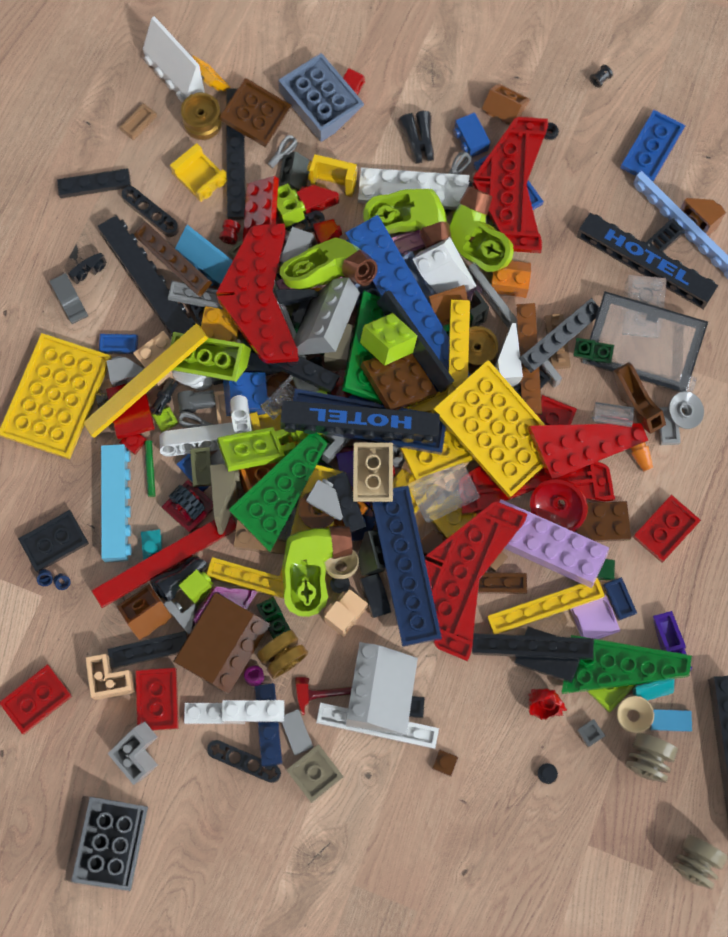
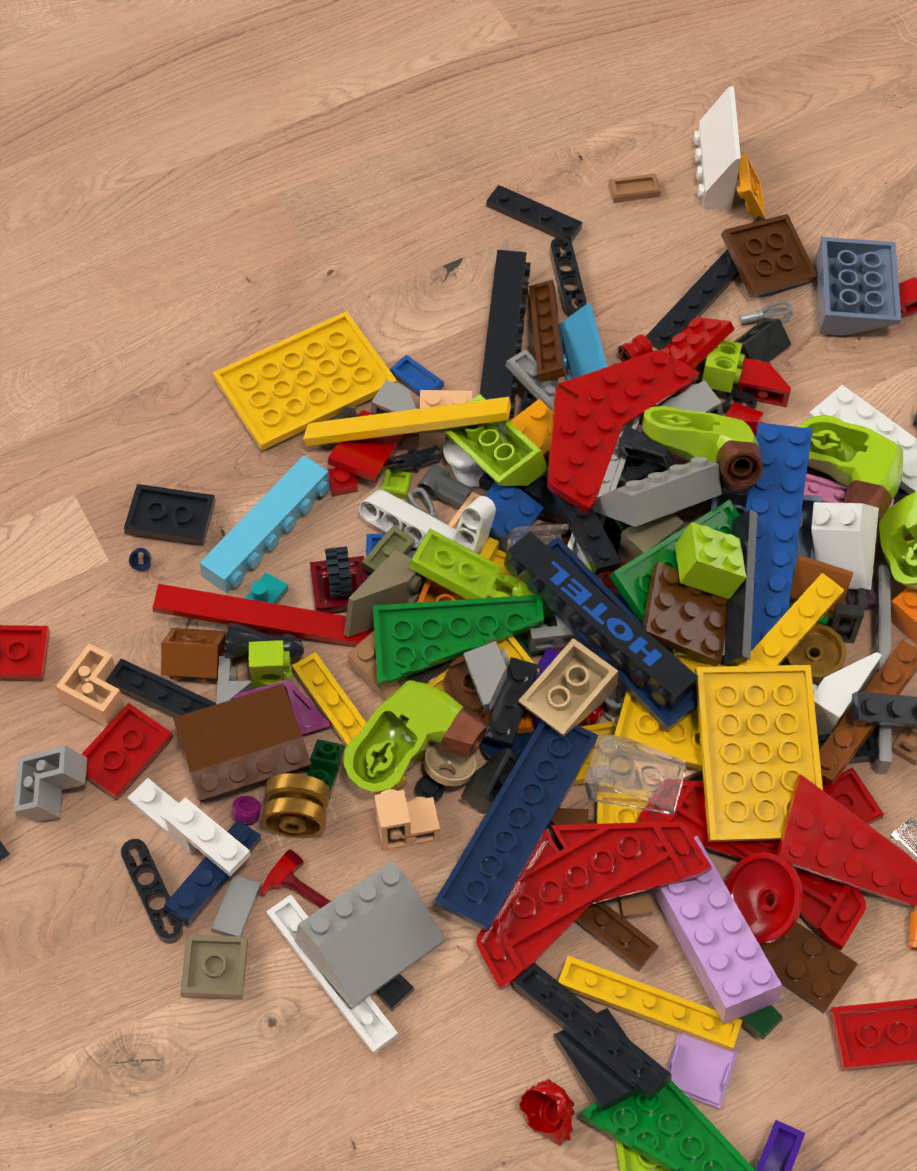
camera: 40 degrees right, 15 degrees down
(45, 579) = (126, 546): dark blue hinge -> none
(68, 298) = (405, 298): dark grey piece -> none
(92, 264) = (459, 283): black slope -> none
(150, 468) = (334, 520): green bar -> none
(198, 173) = (653, 273): yellow panel -> none
(201, 116) = (703, 221): pearl gold wheel -> none
(333, 171) = (805, 365): yellow panel -> none
(376, 595) = (457, 830): black slope -> none
(445, 763) = (371, 1081): reddish brown plate -> none
(620, 599) = (751, 1070): dark blue tile -> none

